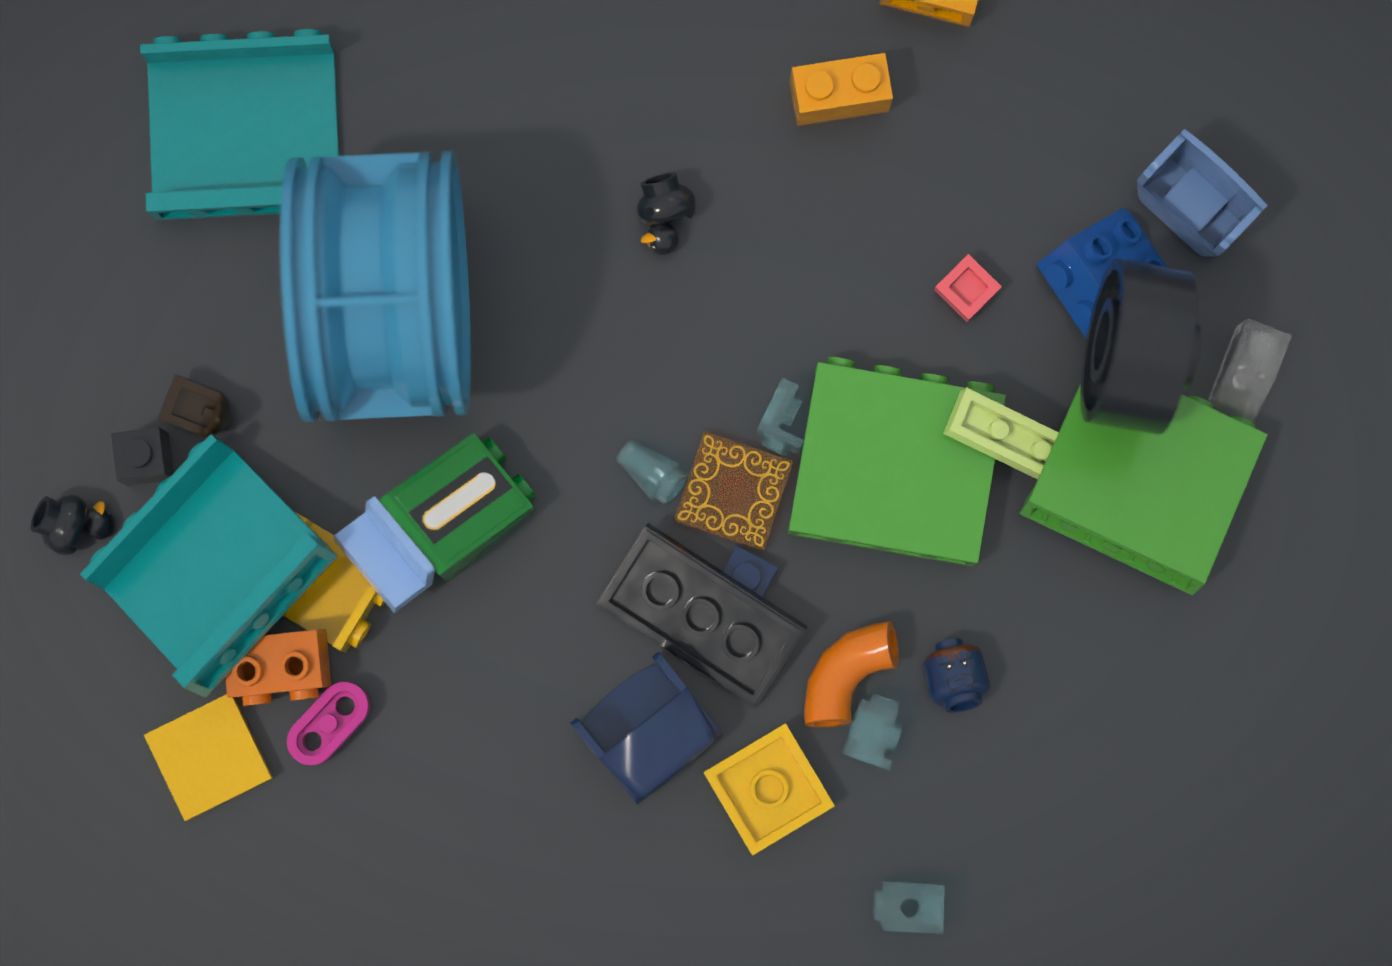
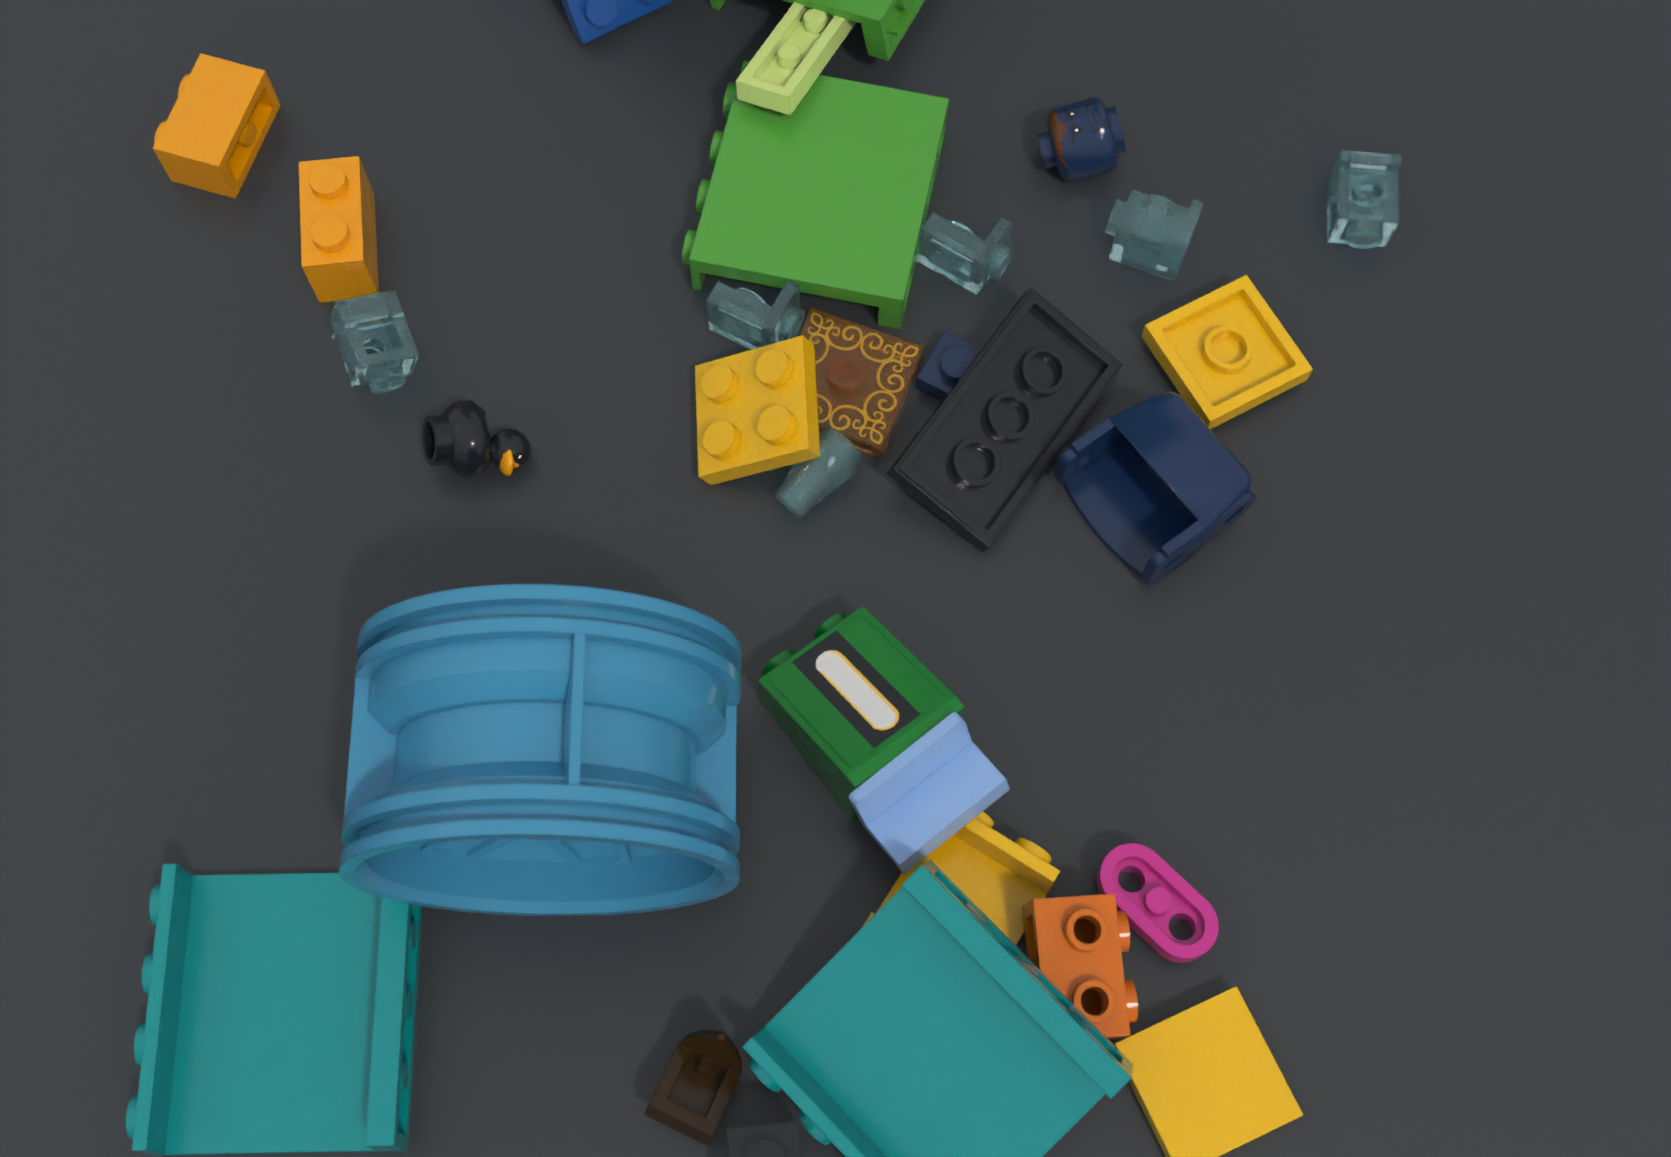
camera: 85 degrees left, 15 degrees down
(697, 422) = (757, 411): none -> yellow plate
(762, 129) = (375, 324): none -> clear light blue brick
(843, 668) = (1073, 260): orange cylinder -> none
(848, 573) = (961, 255): none -> clear light blue bracket
(967, 288) = (606, 110): coral plate -> none

